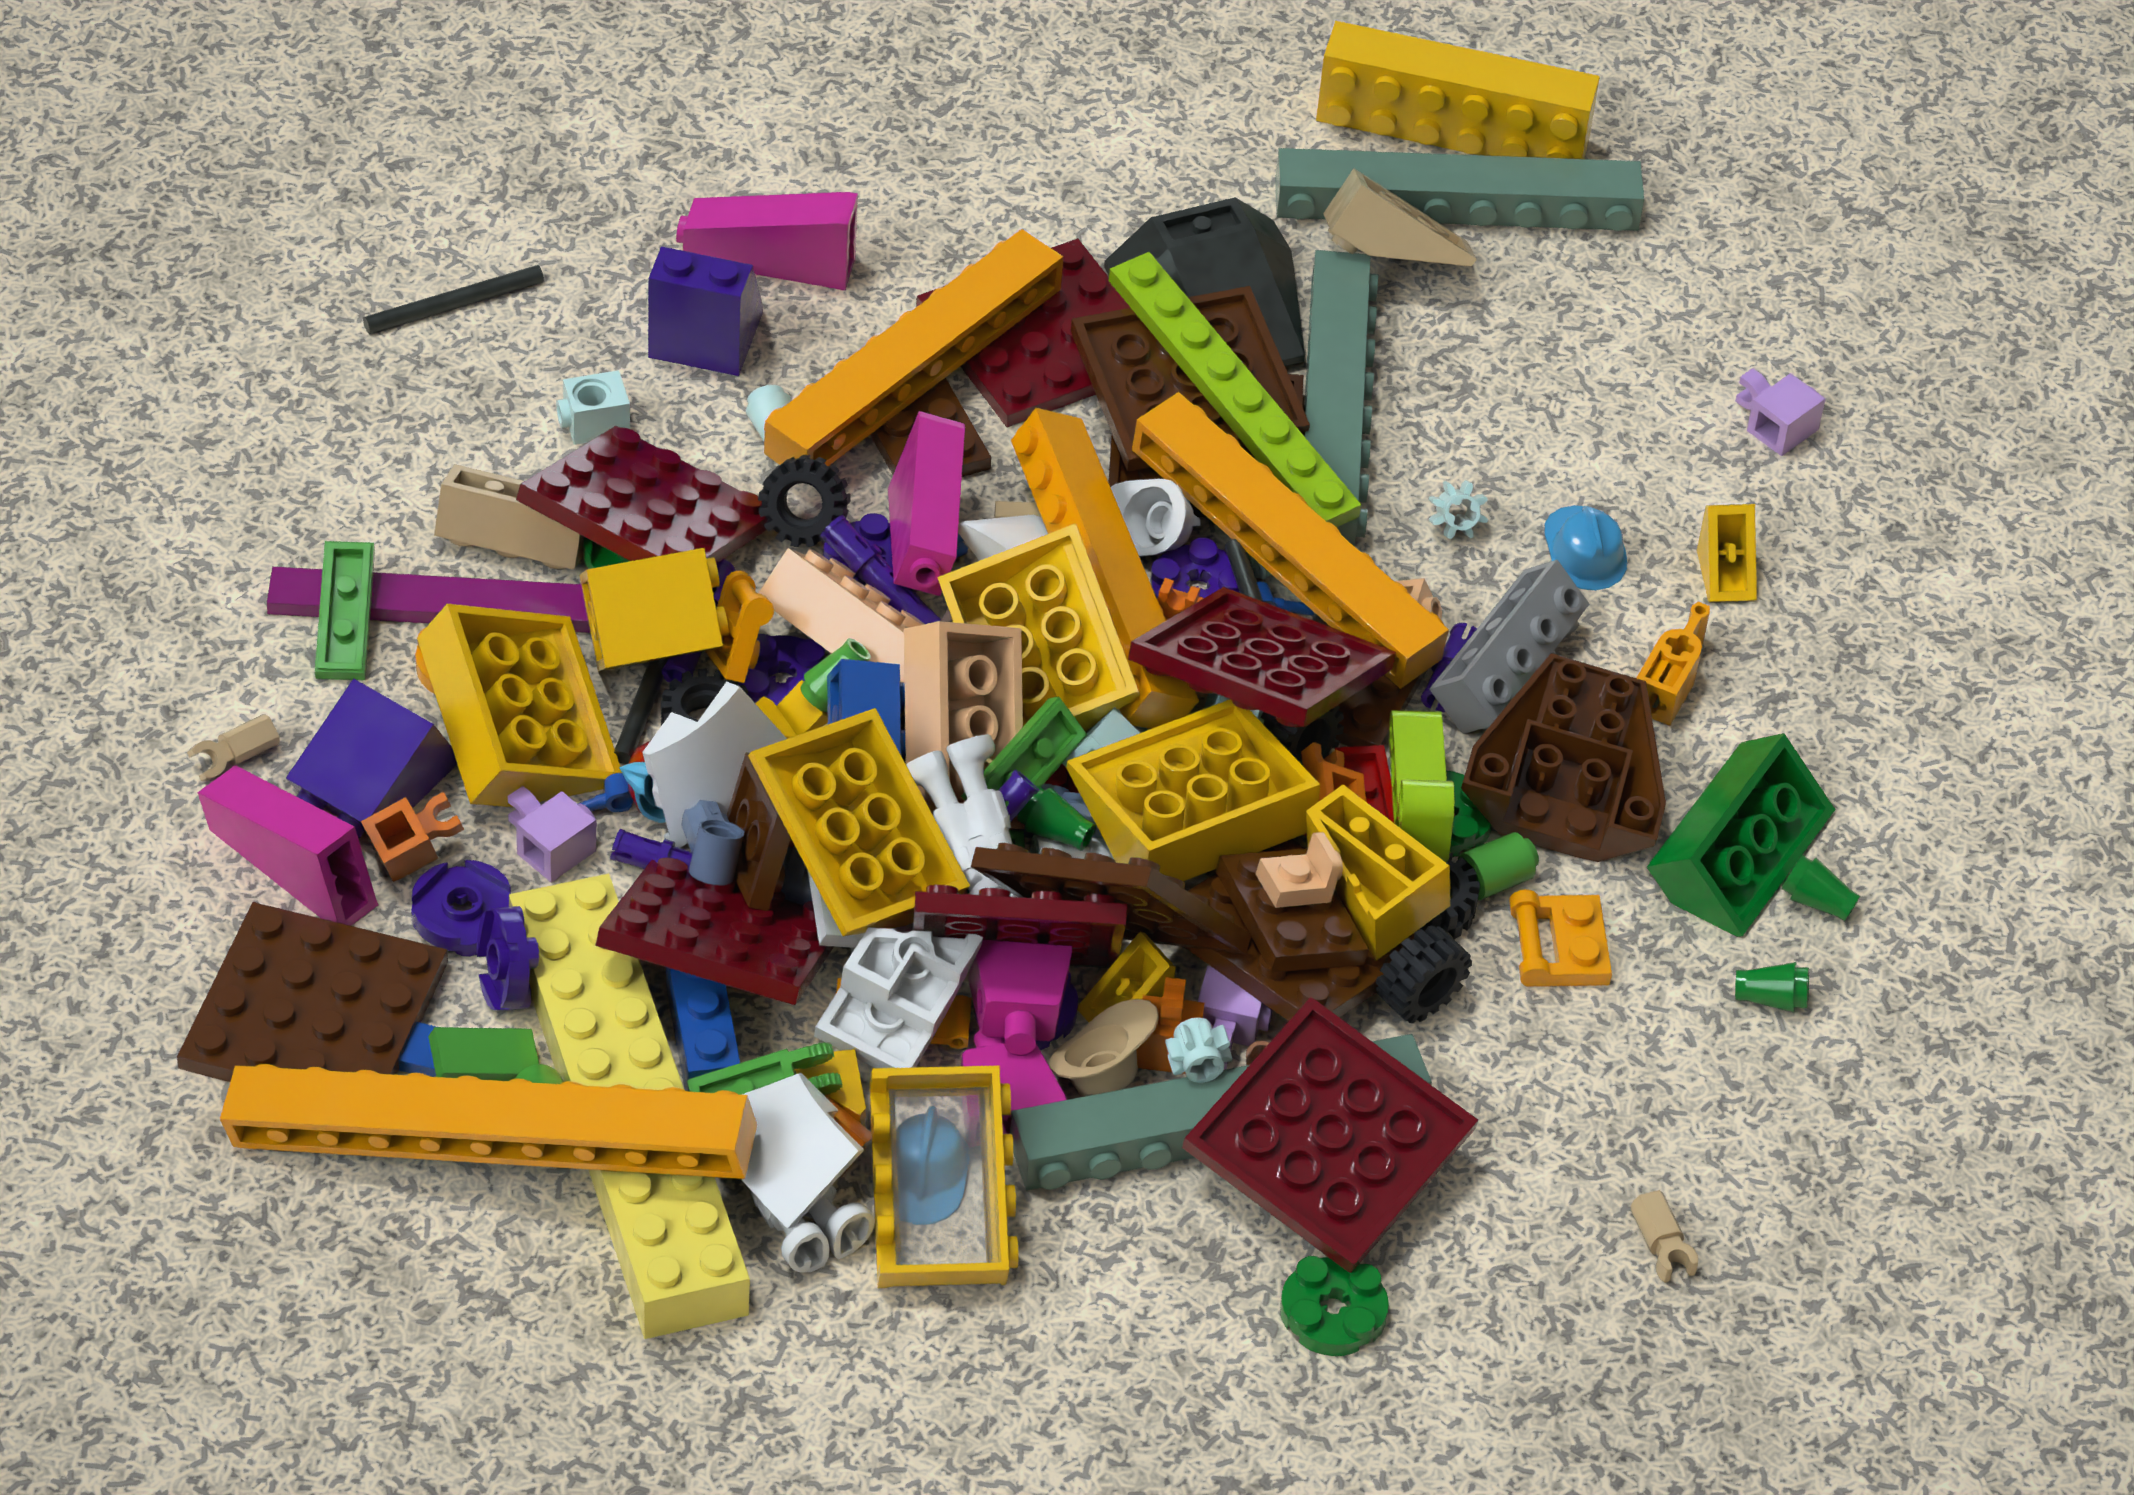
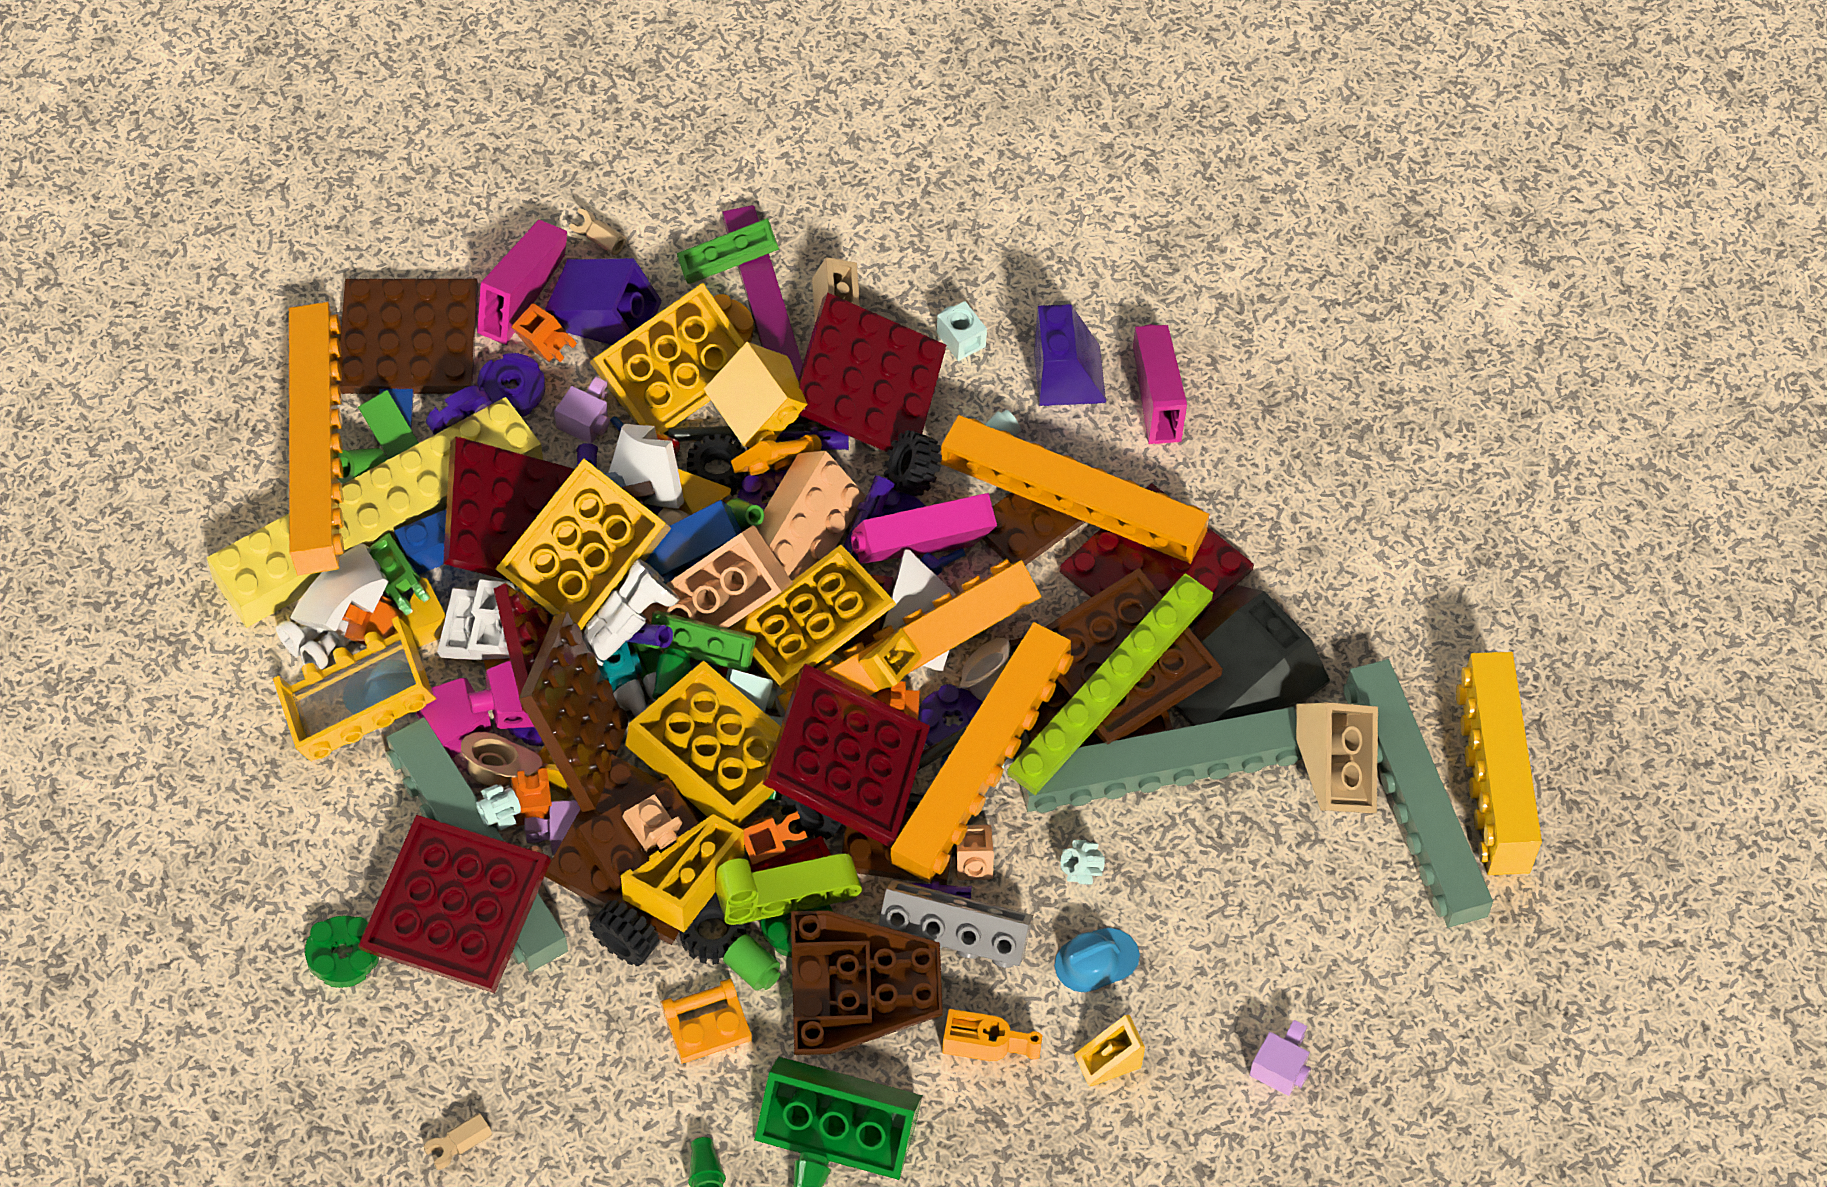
camera: 75 degrees right, 10 degrees up
(453, 299) = (1034, 230): pearl dark grey bar -> none
(1146, 577) = (890, 660): none -> yellow slope

